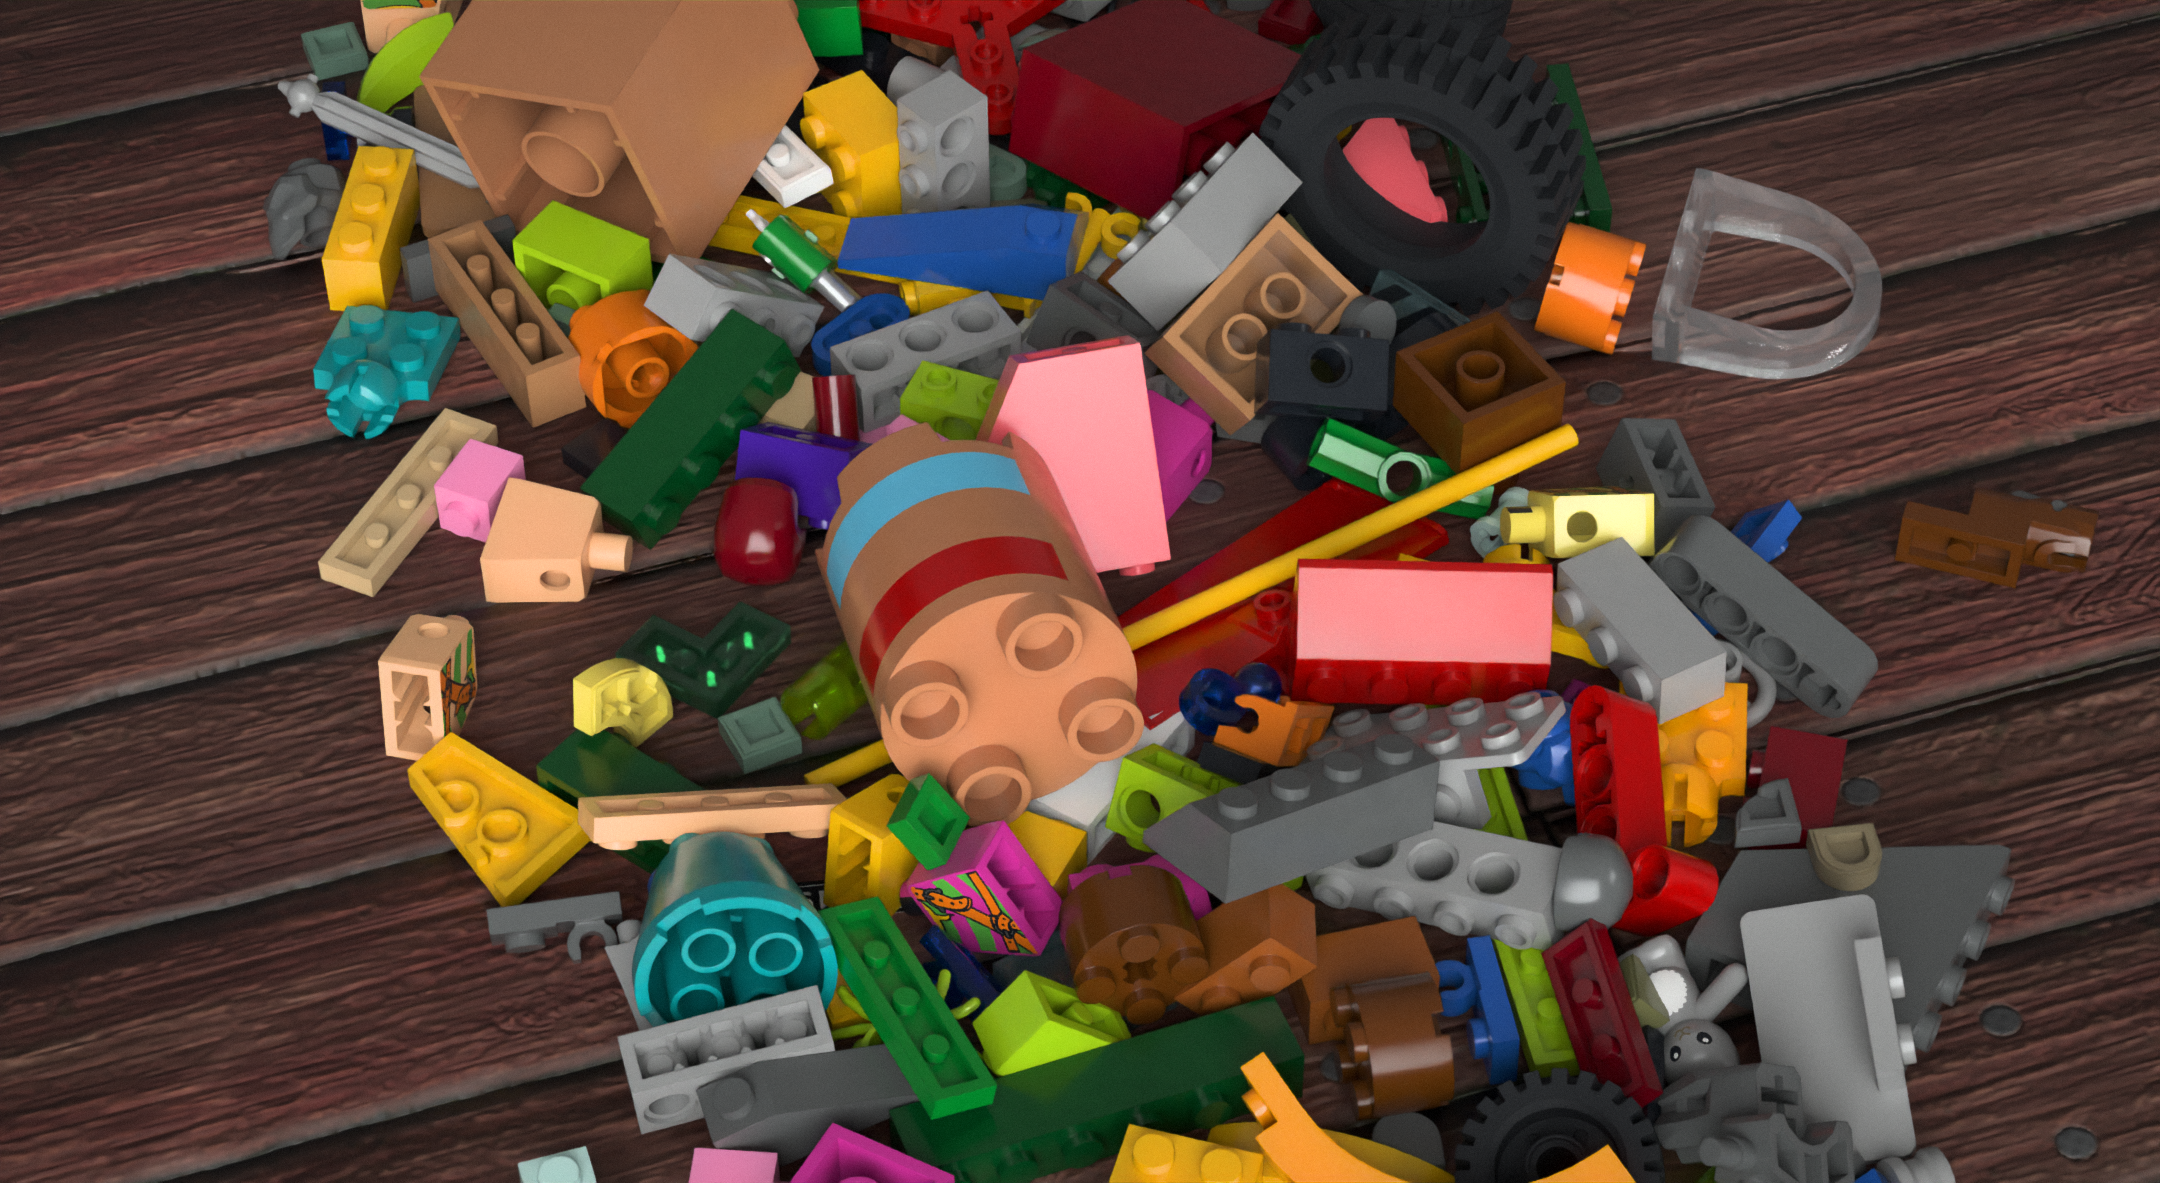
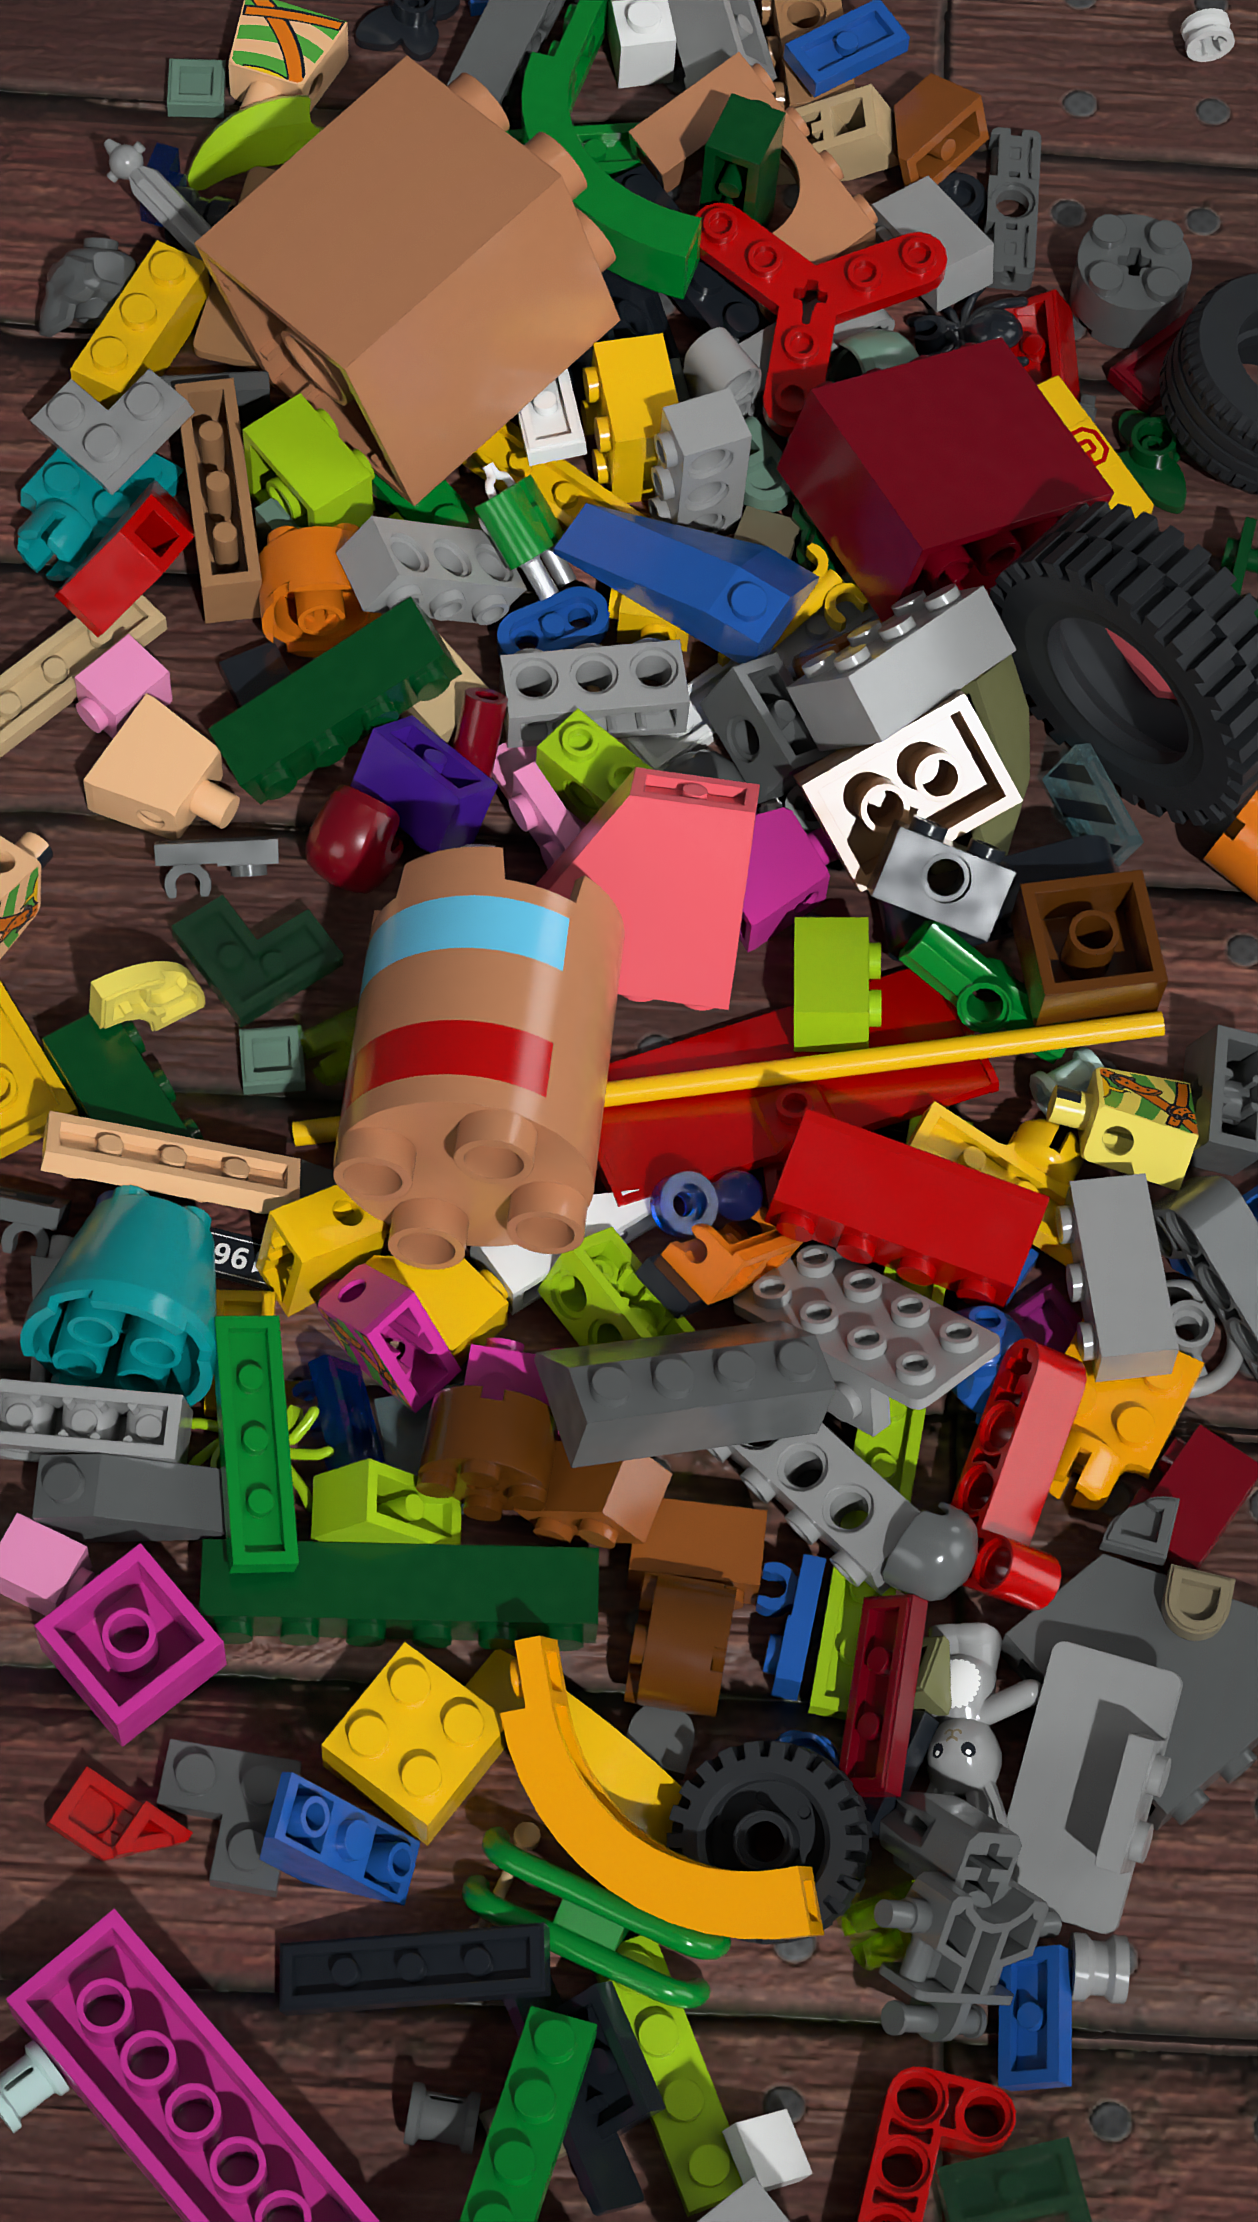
camera: 15 degrees right, 20 degrees up
(390, 298) = (117, 440): none -> light grey plate
(444, 380) = (128, 559): none -> red slope
(654, 580) = (243, 854): none -> plate
(928, 821) = (351, 1259): green plate -> none
(1256, 506) = (833, 984): none -> lime brick
(1372, 315) = (1017, 830): dark grey tile -> none

